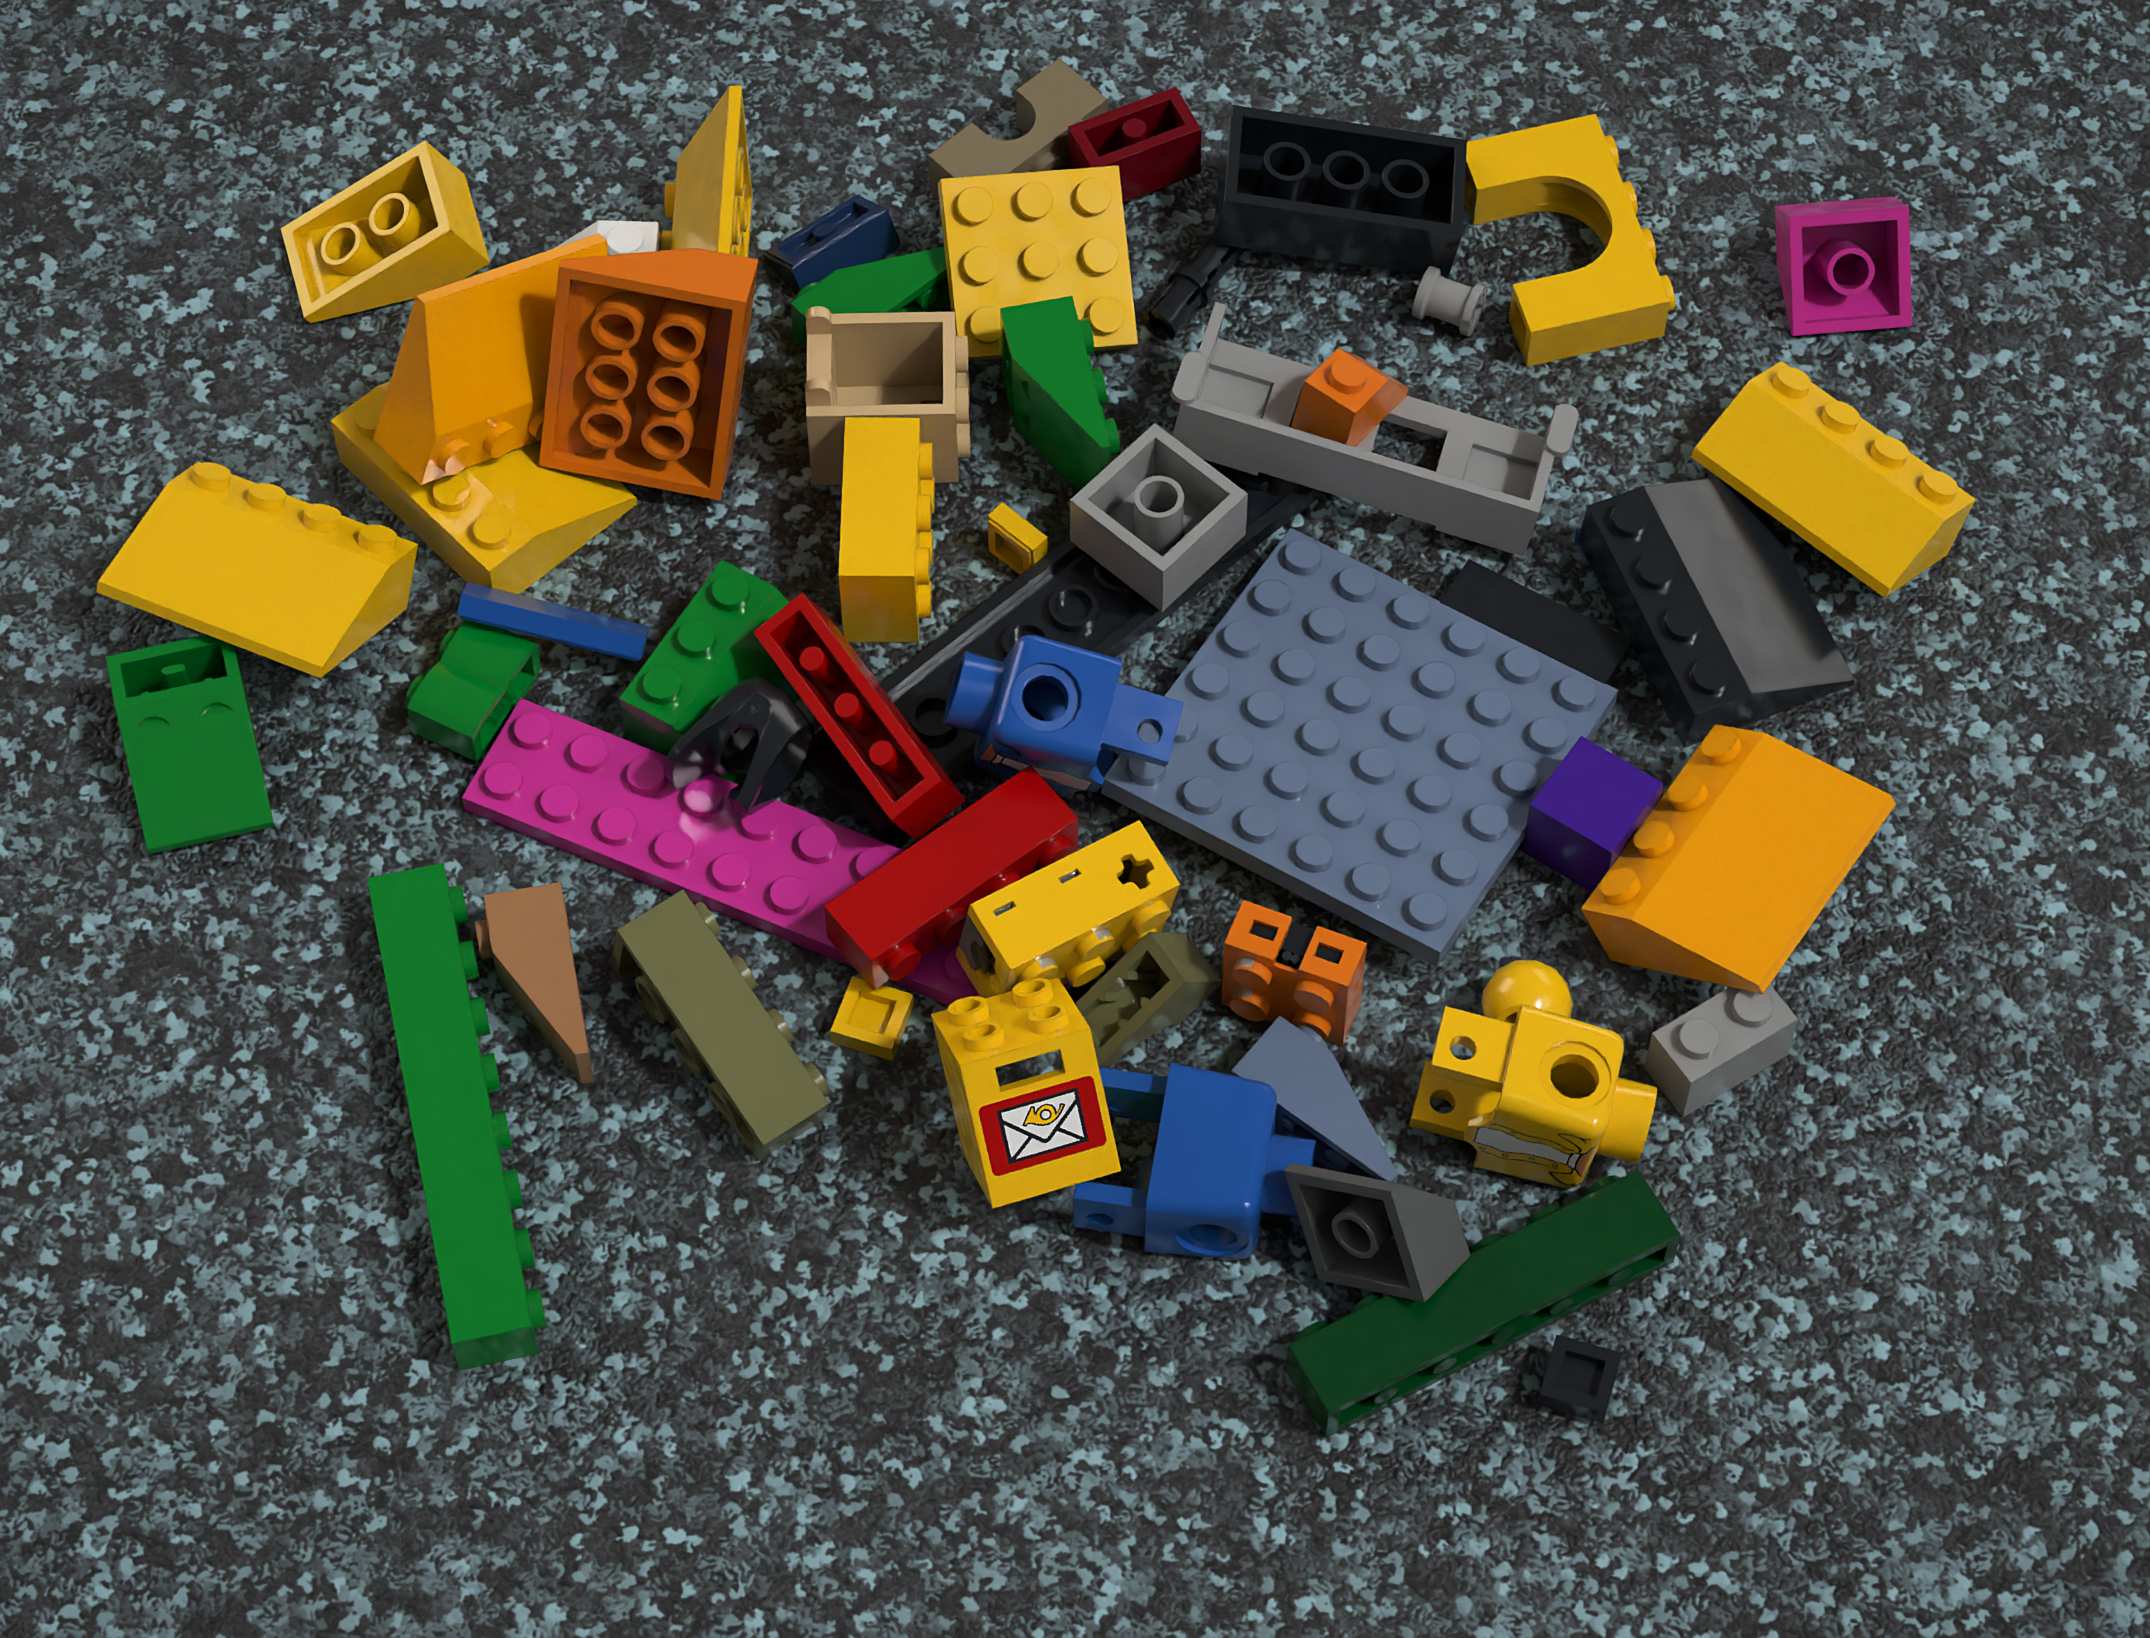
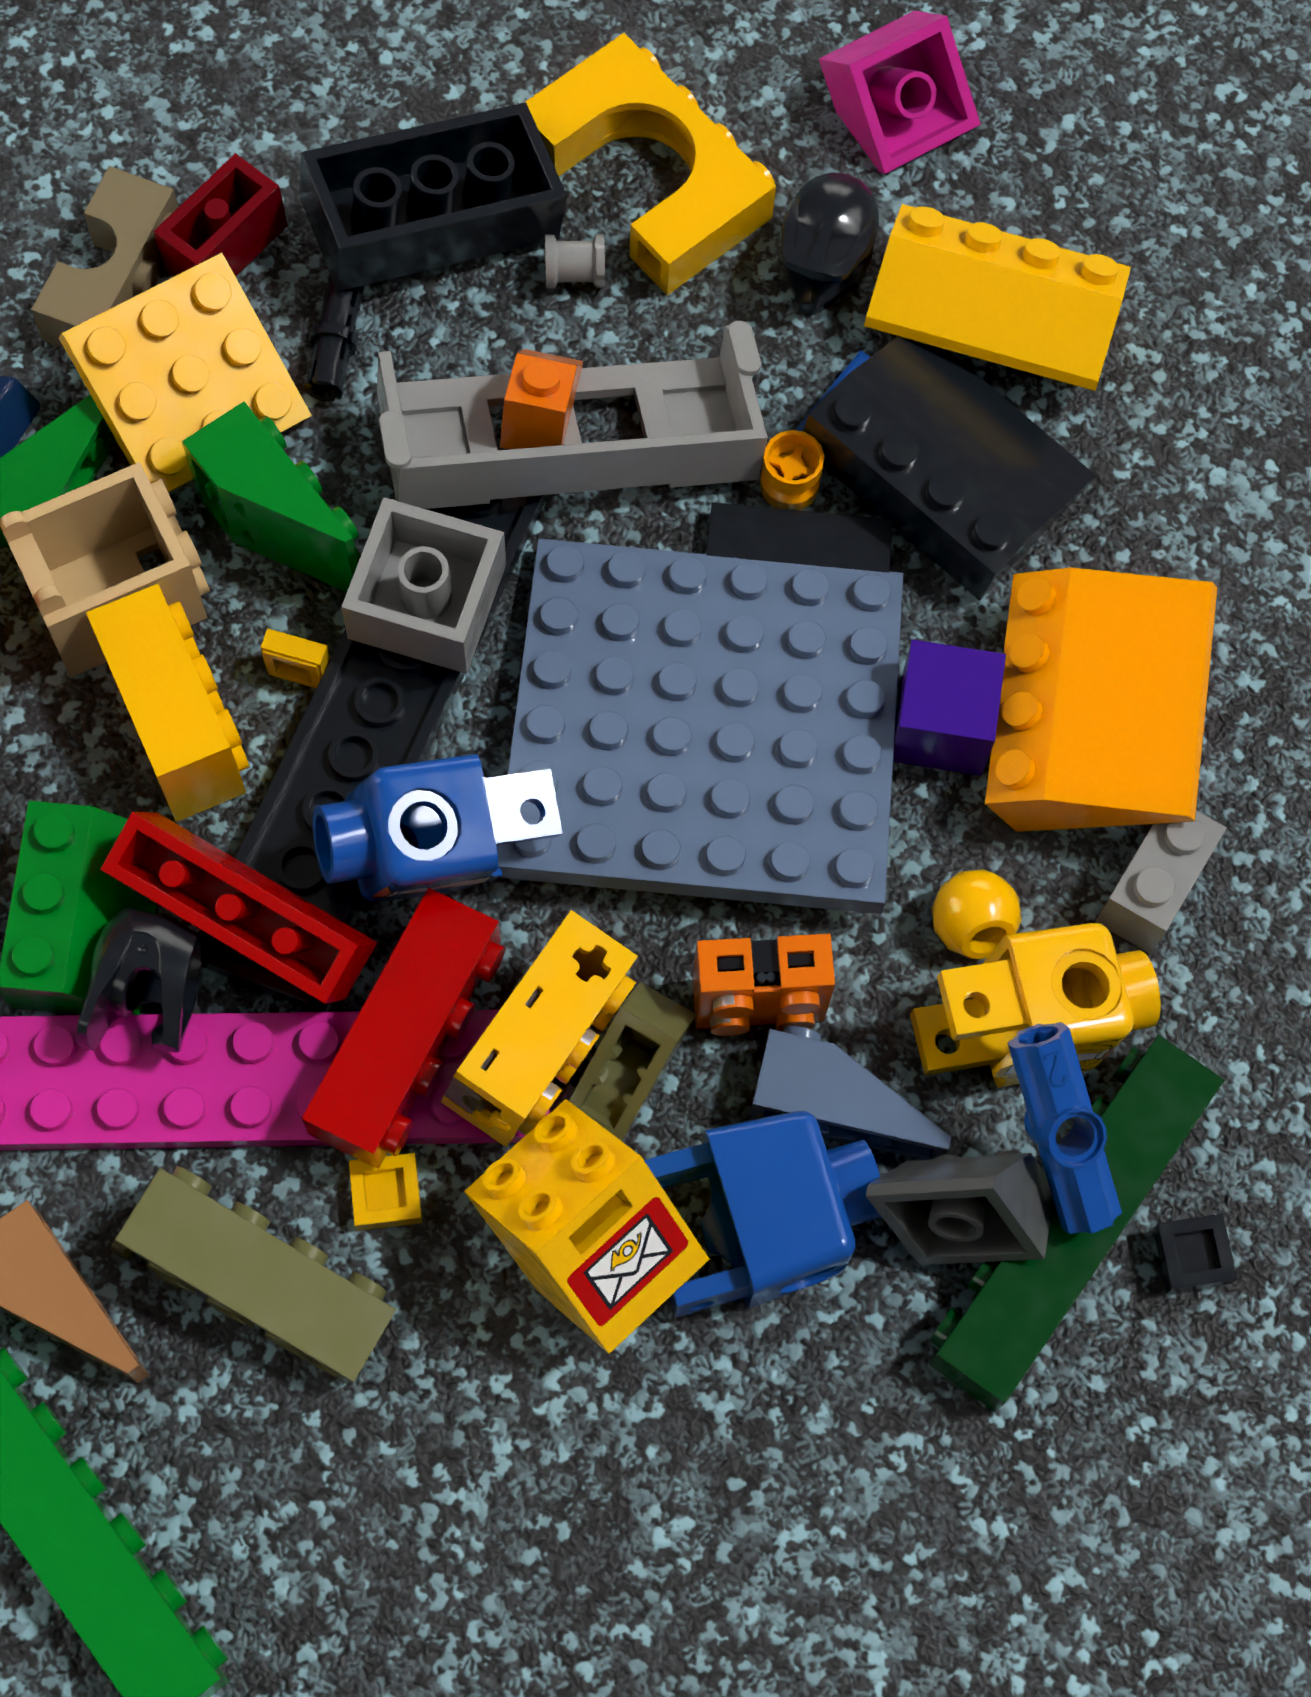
camera: 30 degrees left, 10 degrees up
(1491, 1231) = (1053, 1093): none -> blue piece
(1558, 559) = (790, 457): none -> light orange wheel
(1693, 360) = (825, 237): none -> black helmet

